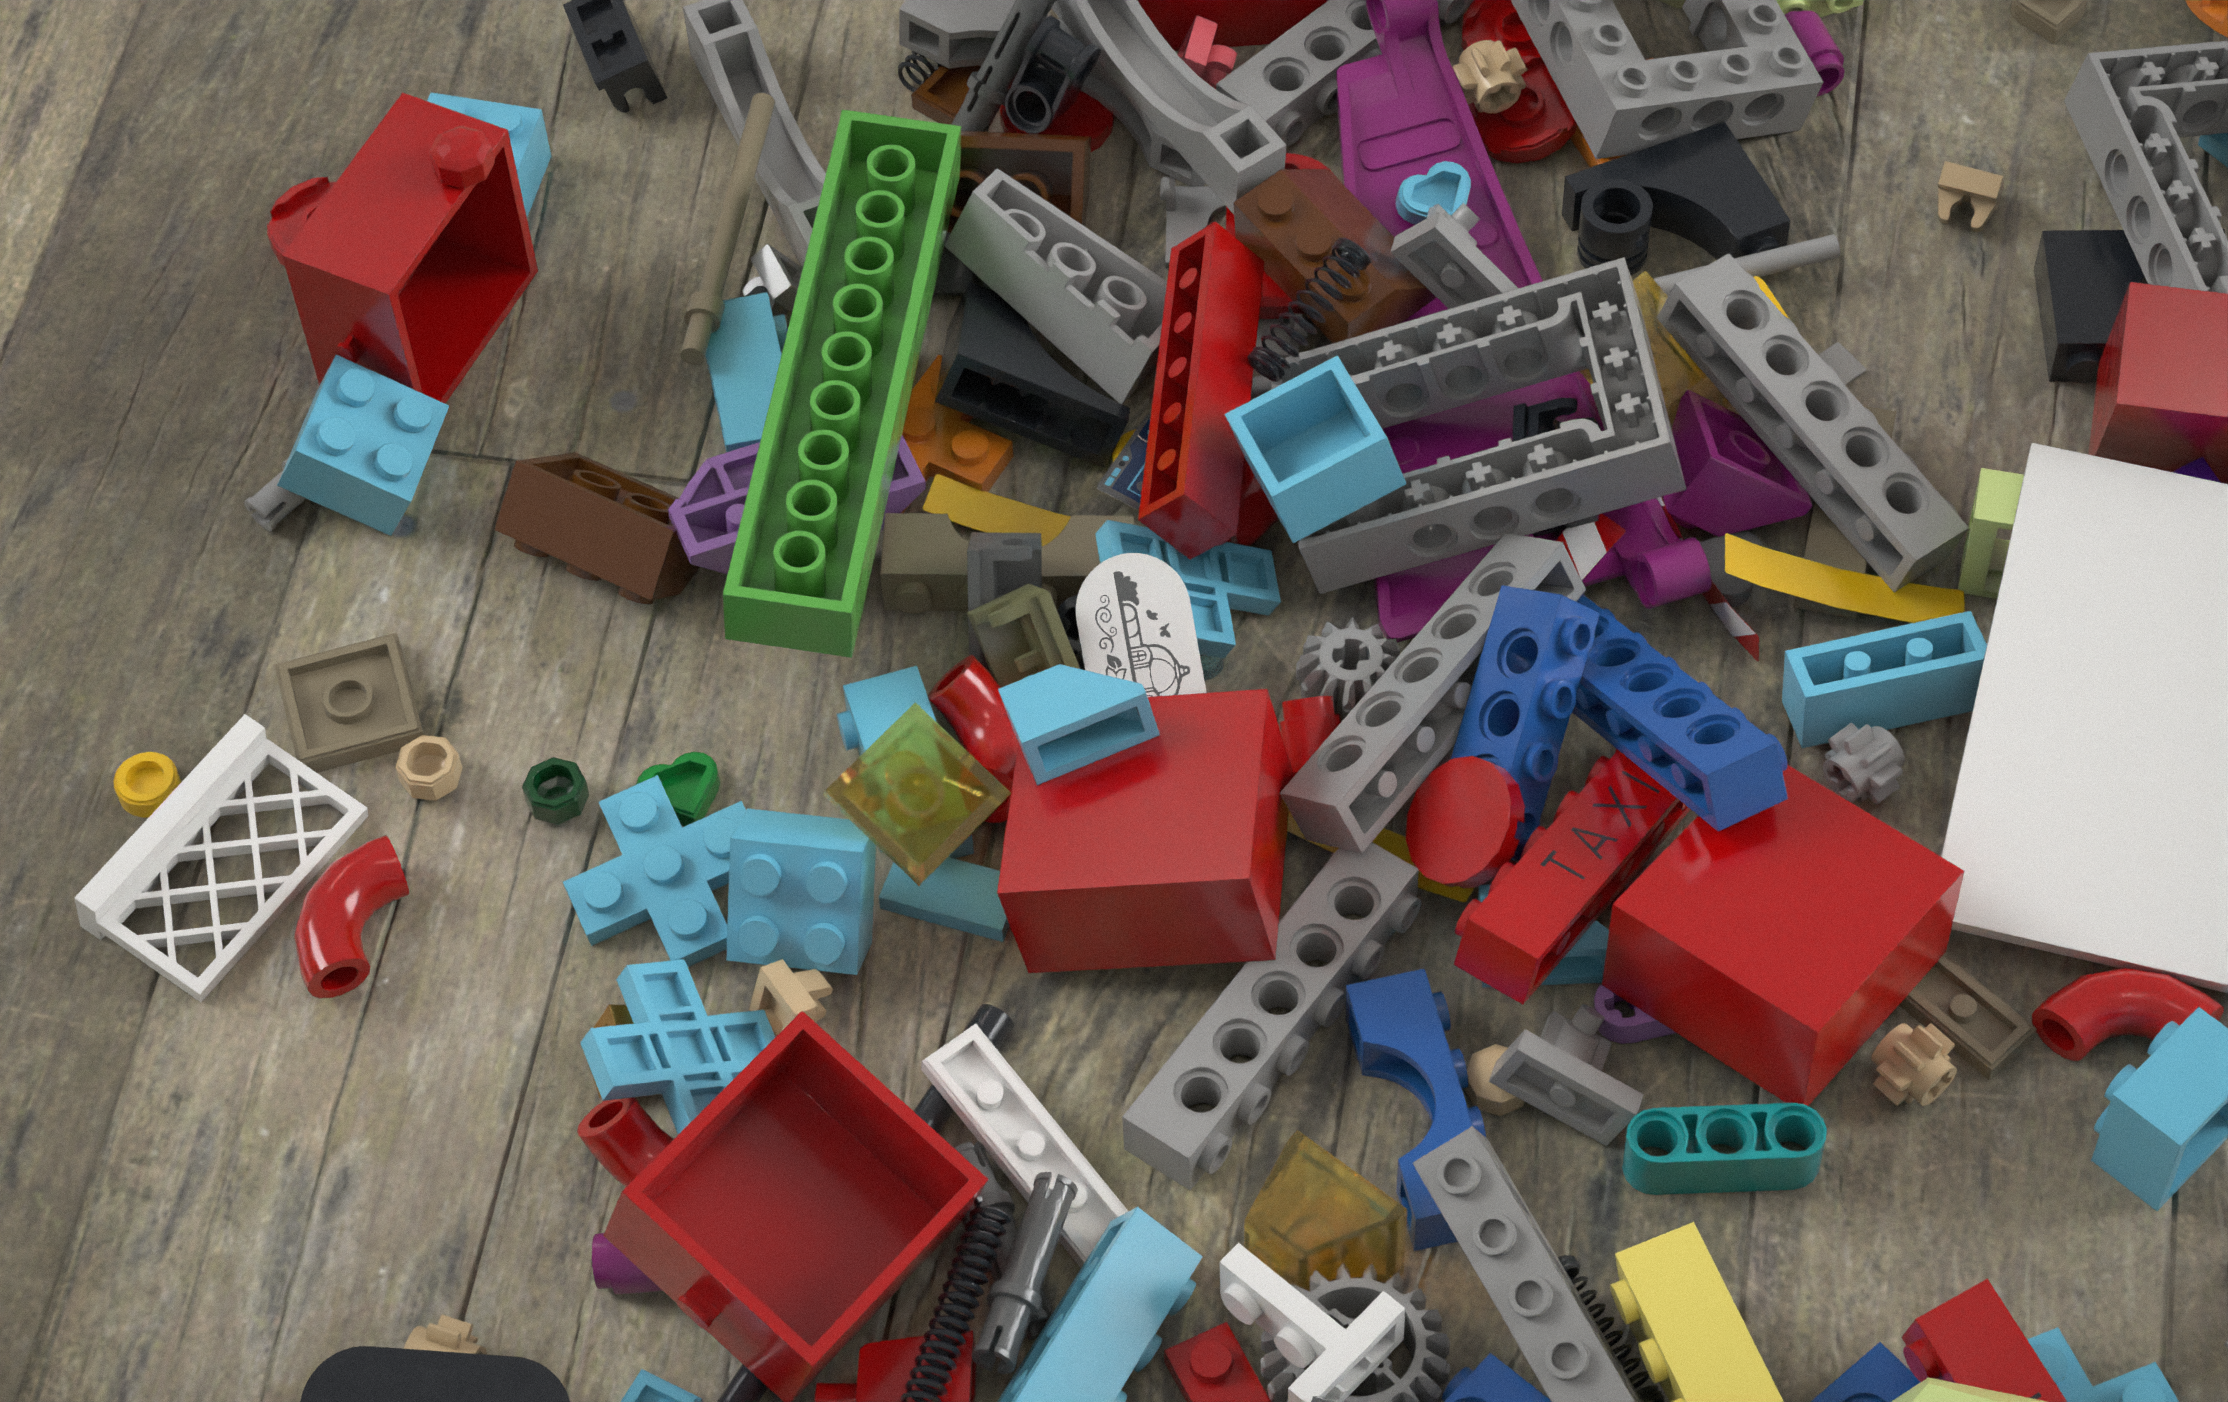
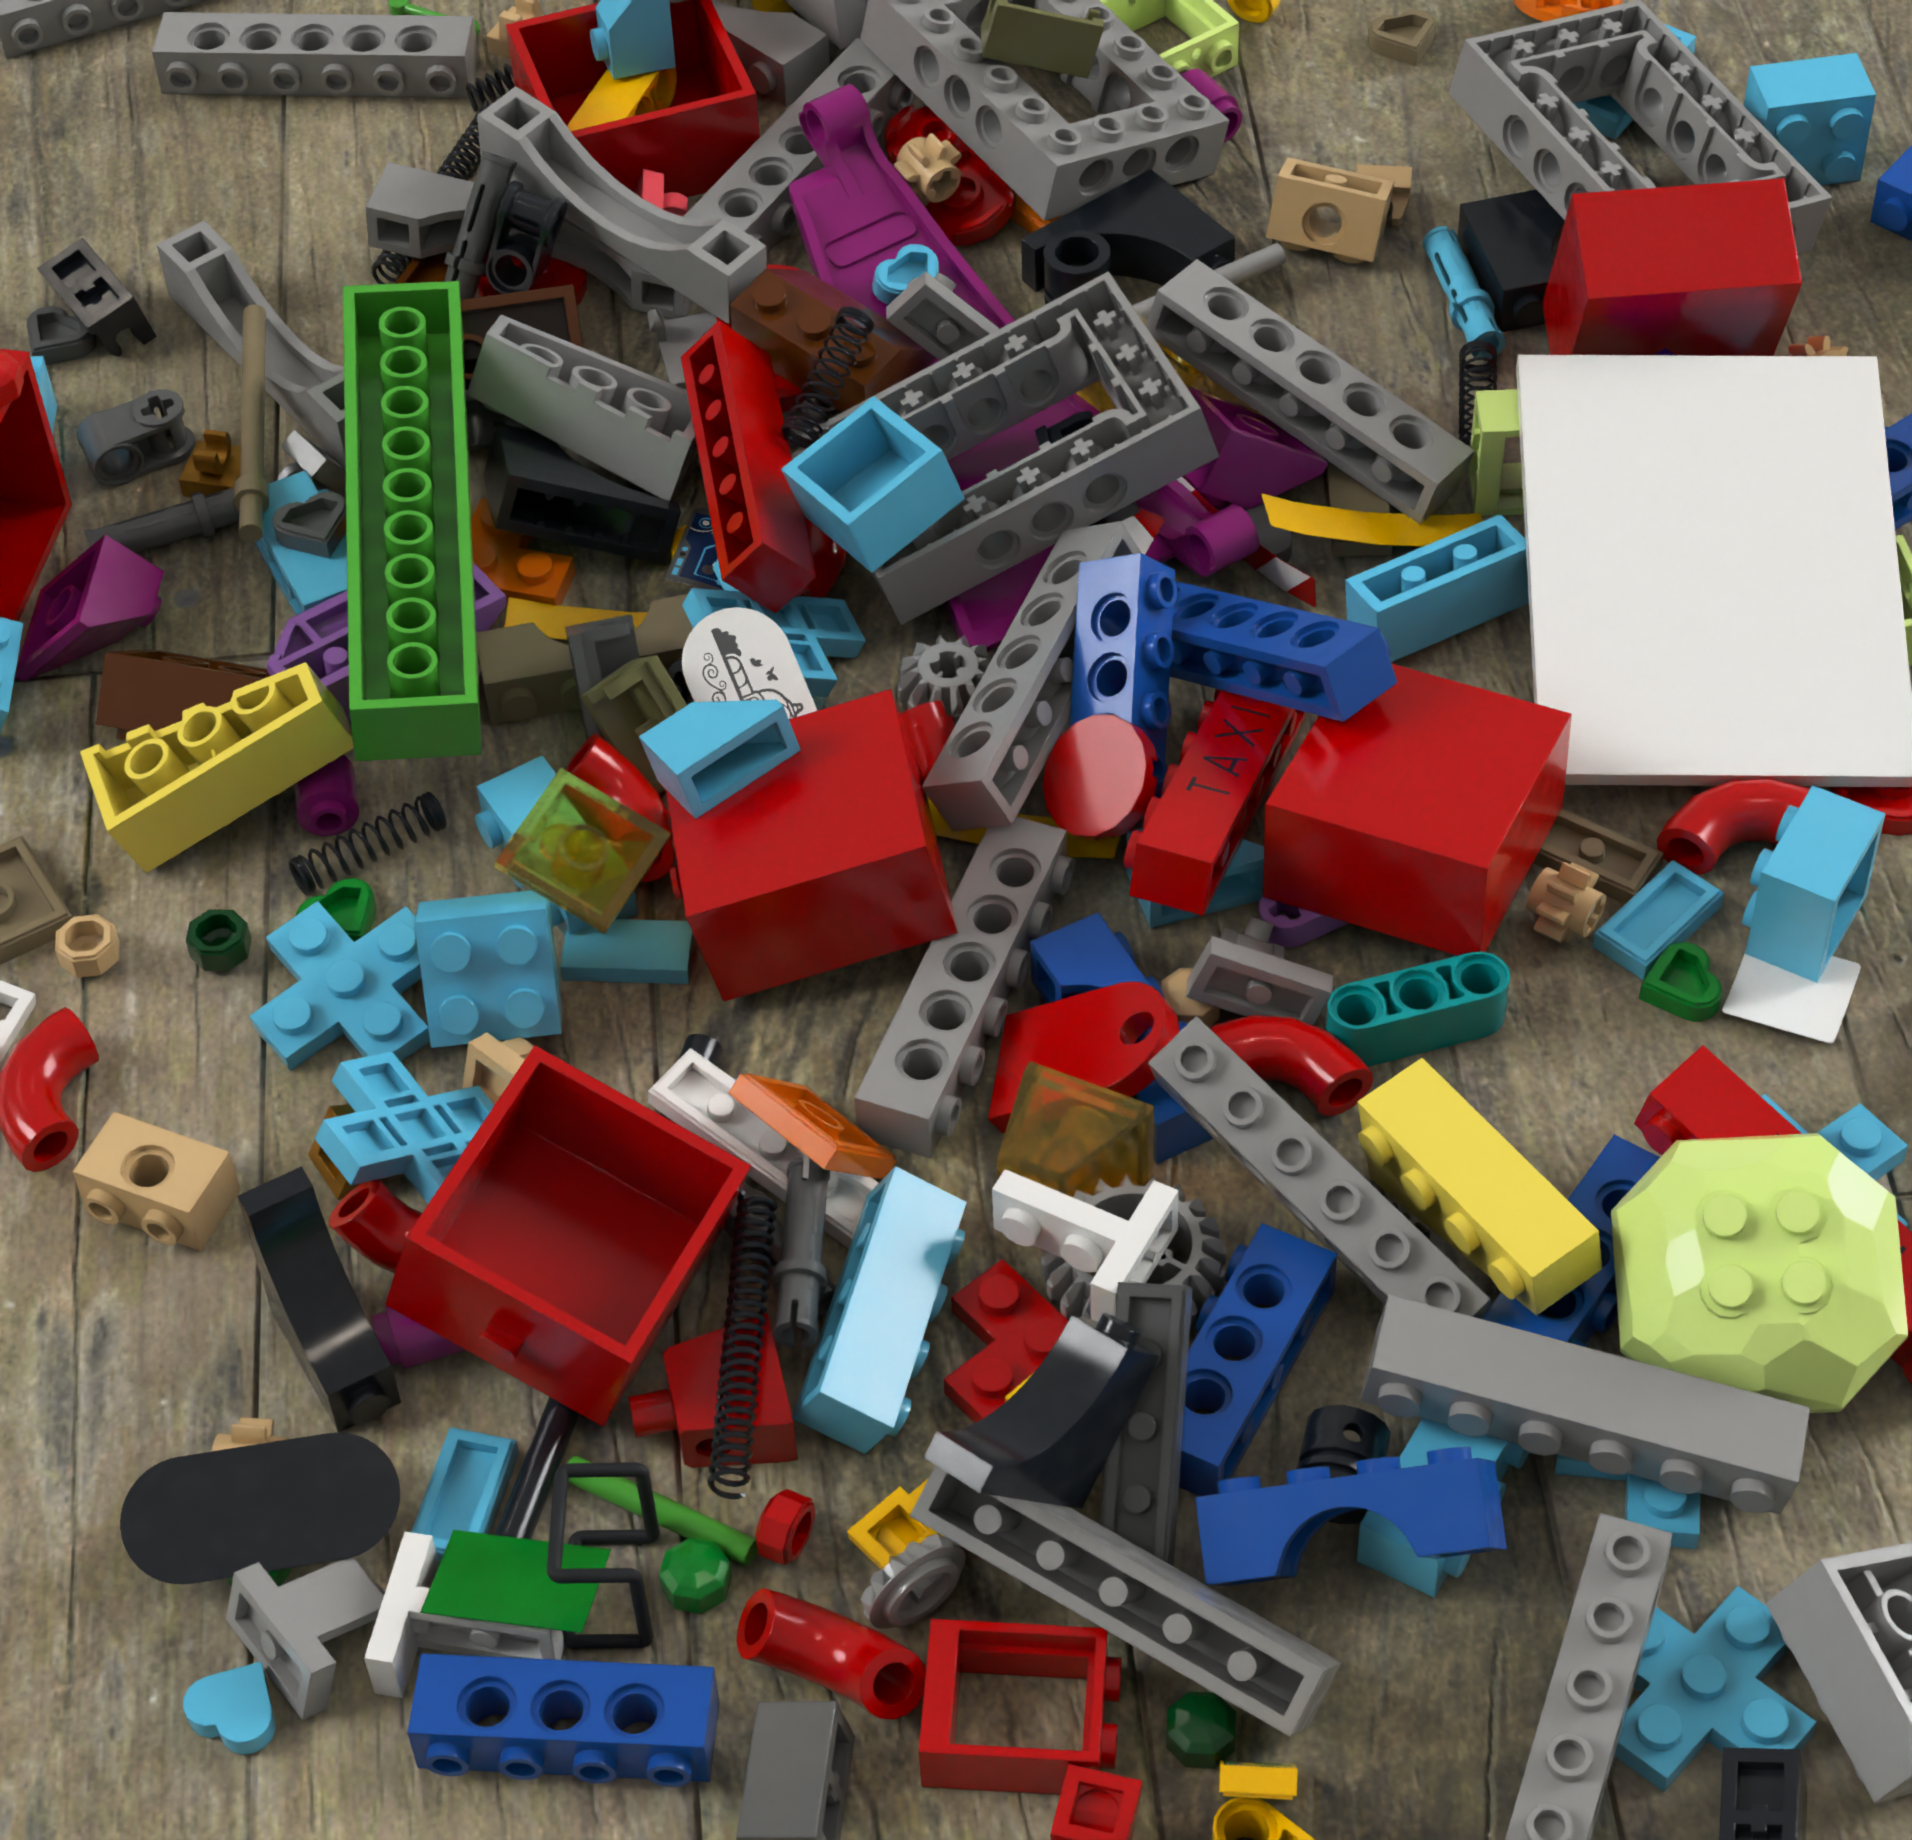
camera: 15 degrees left, 5 degrees down
(414, 1010) = (156, 1181): none -> tan brick
(521, 396) = (89, 607): none -> magenta slope
(542, 1216) = (316, 1301): none -> black arch
(567, 80) = (58, 335): none -> dark grey tile
(590, 607) = (215, 764): none -> light yellow wedge
(609, 213) = (132, 441): none -> dark grey piece
(614, 319) = (172, 523): none -> dark grey pin
(653, 726) = (431, 810): none -> black piece
(680, 262) = (212, 465): none -> pearl gold tile
(698, 652) = (328, 799): none -> magenta brick
(752, 357) = (313, 525): none -> dark grey tile
(1074, 1138) = (813, 1126): none -> orange tile
(1368, 1113) = (1087, 1039): none -> red tile
(1580, 1167) = (1300, 1057): none -> red cylinder
(1863, 763) = (1443, 654): light grey gear -> none
(1932, 201) = (1358, 199): none -> tan brick
(2009, 1102) = (1657, 917): none -> medium azure tile
(2011, 420) = (1463, 364): none -> black piece
(2013, 1180) = (1683, 983): none -> green tile
(2022, 347) = (1469, 306): none -> medium azure pin
(2123, 1227) = (1791, 1001): none -> white sticker

